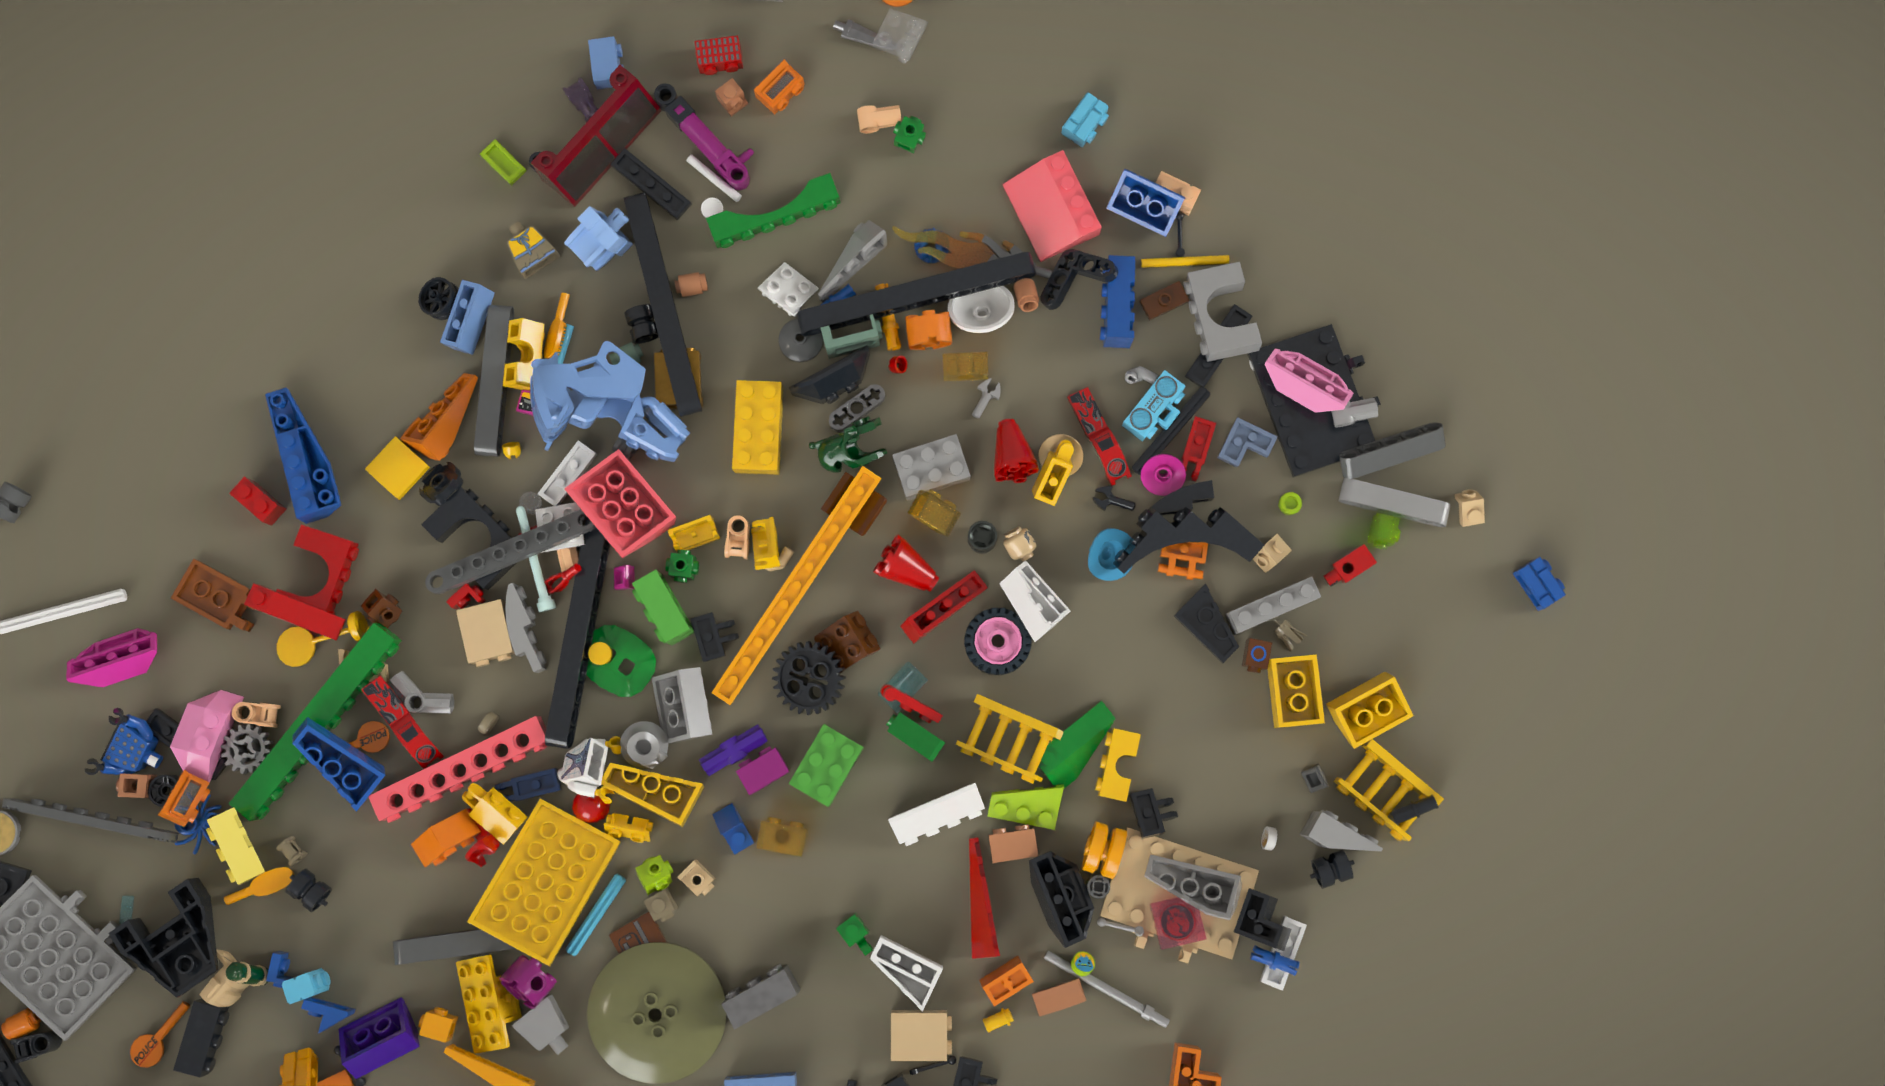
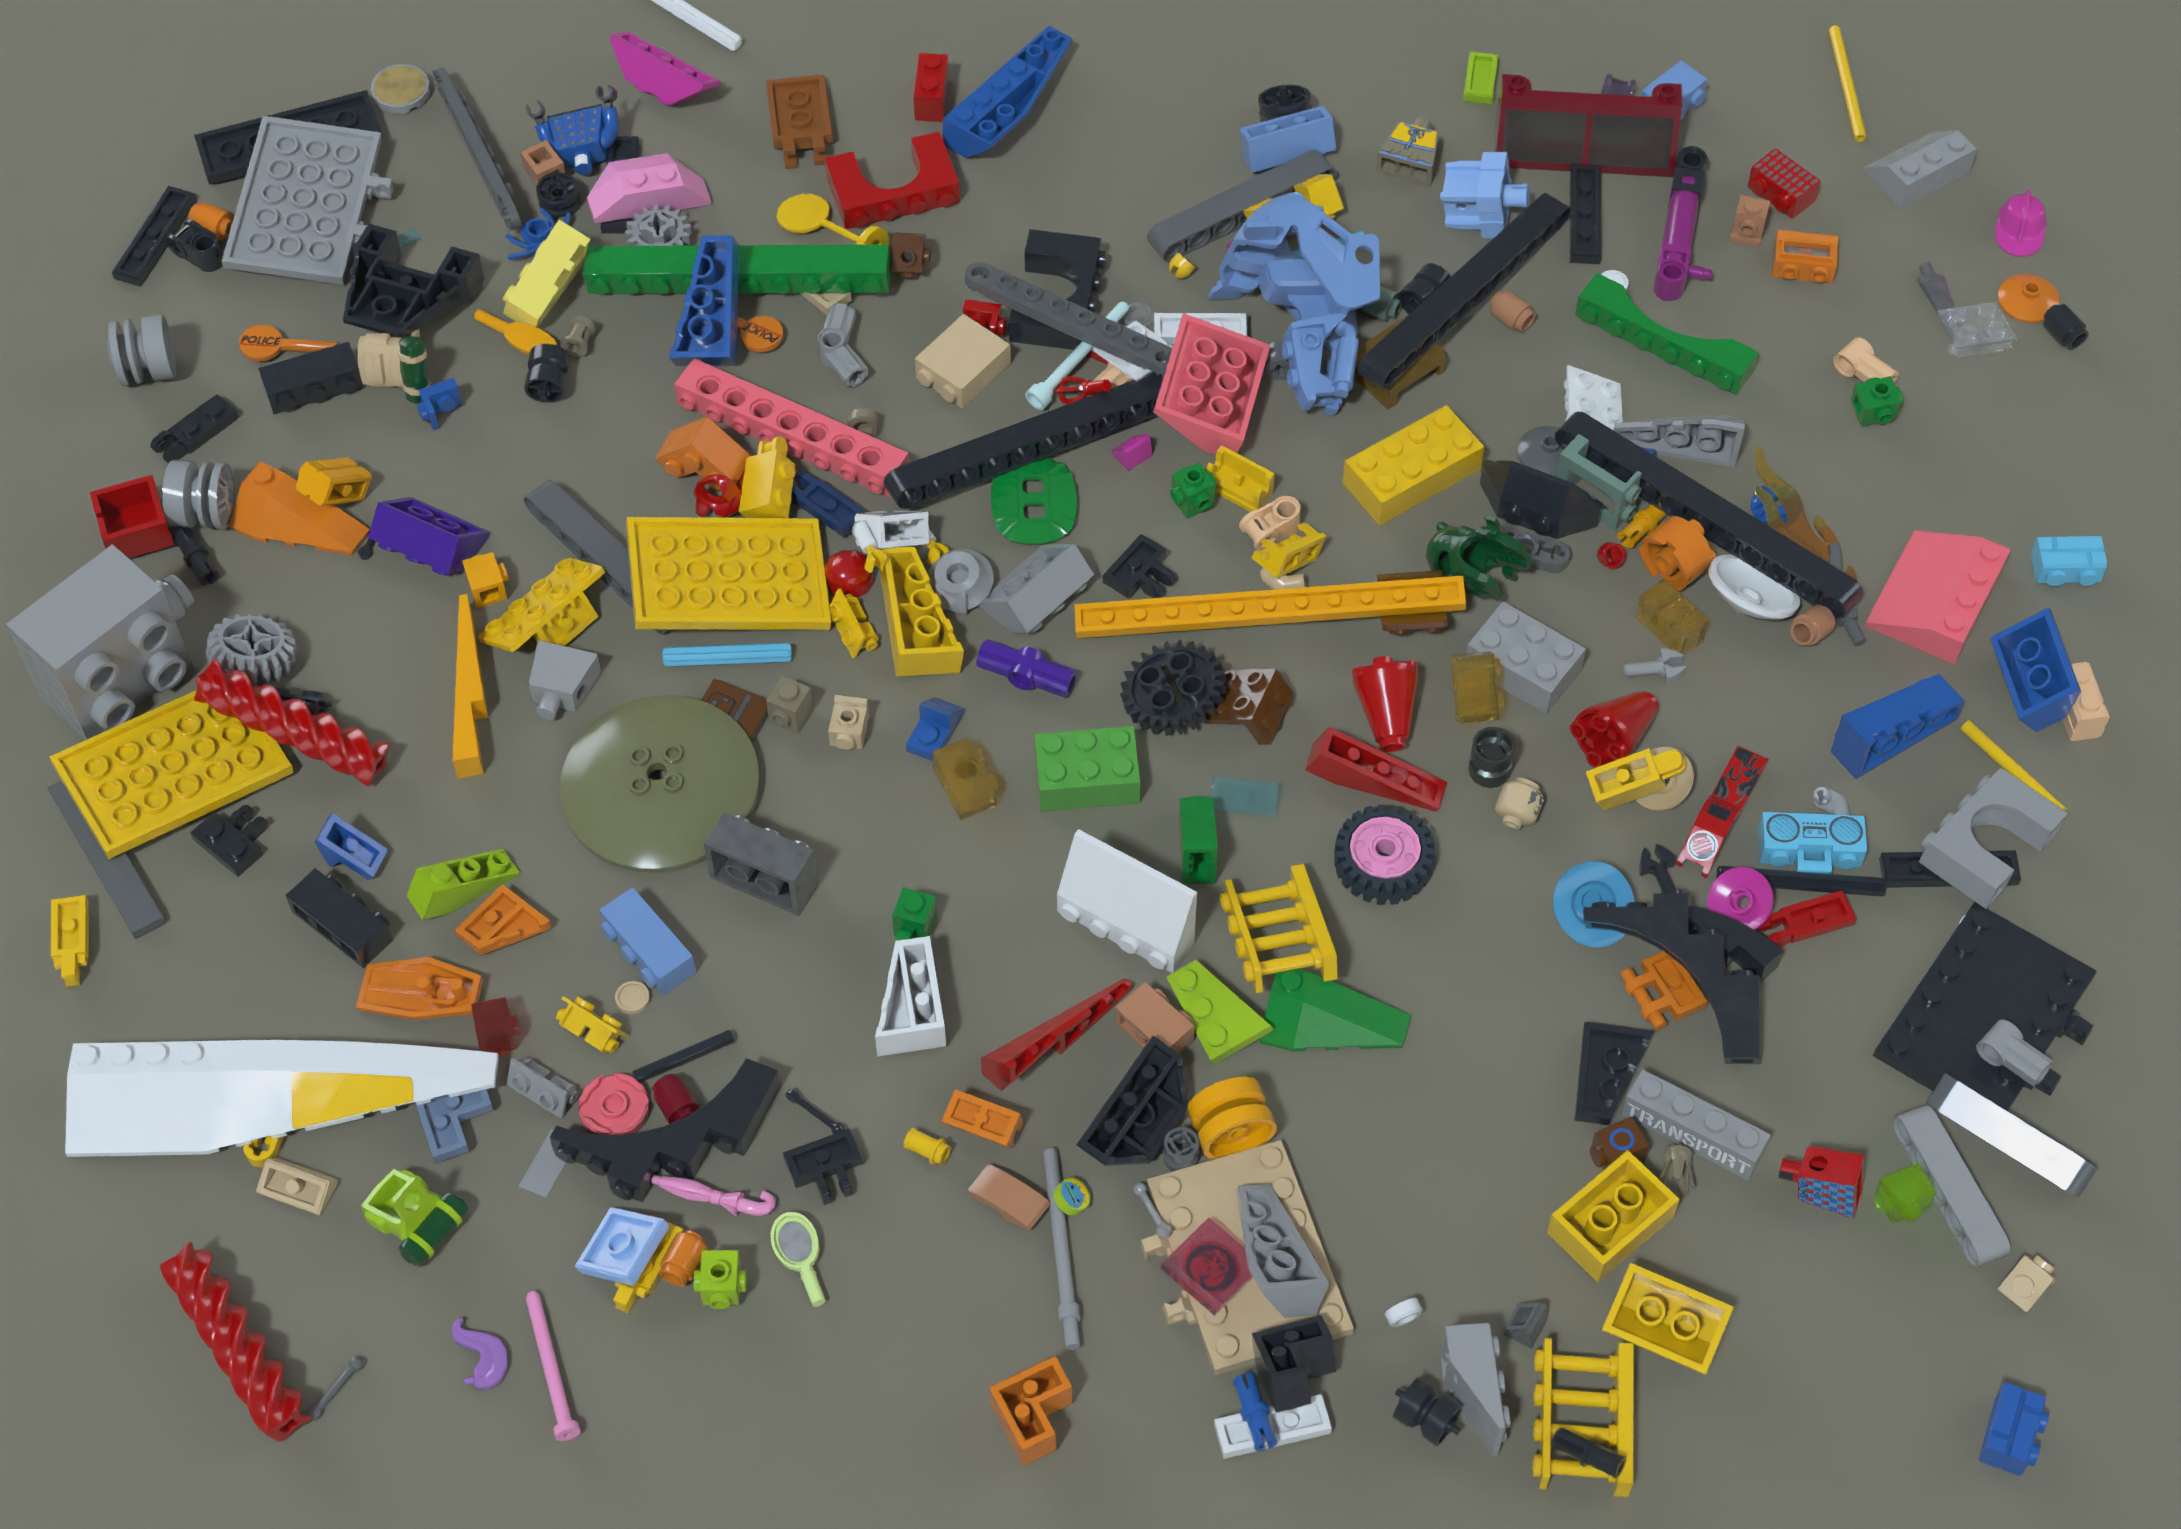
camera: 55 degrees right, 25 degrees down
(184, 799) = (563, 200): orange window -> none
(260, 714) = (703, 215): light nougat piece -> none
(294, 611) = (842, 173): red slope -> none
(306, 985) = (439, 427): medium azure brick -> none
(331, 1012) = (421, 475): blue slope -> none
(397, 468) = (1071, 182): yellow slope -> none
(401, 722) = (800, 337): piece -> none
(438, 429) = (1143, 188): orange wedge -> none
(441, 483) = (1089, 220): black plate -> none
(519, 619) = (995, 385): light grey slope -> none
(527, 981) = (586, 625): magenta brick -> none
(557, 328) = (1354, 225): light orange piece -> none
(600, 653) = (1028, 473): yellow tile -> none
(654, 874) = (821, 673): lime brick -> none
(662, 608) = (1130, 494): bright green brick -> none
(709, 174) = (1647, 264): white bar -> none
(763, 770) = (1026, 706): magenta brick -> none
(909, 703) = (1231, 801): red plate -> none
(920, 1035) = (842, 1068): tan brick -> none
(1033, 600) = (1465, 856): white wedge -> none
(1075, 267) = (1894, 650): black beam -> none
(1111, 783) = (1373, 1064): yellow arch -> none
(1148, 814) = (1317, 1148): black hinge -> none
(1164, 300) = (1944, 775): reddish brown plate -> none
(1180, 251) = (2058, 730): black hinge -> none
(1243, 437) = (1868, 961): sand blue plate -> none
(1272, 553) = (1759, 1084): tan bracket -> none
(1290, 503) = (1838, 1070): lime tile -> none
(1307, 381) = (1997, 969): bright pink wedge -> none

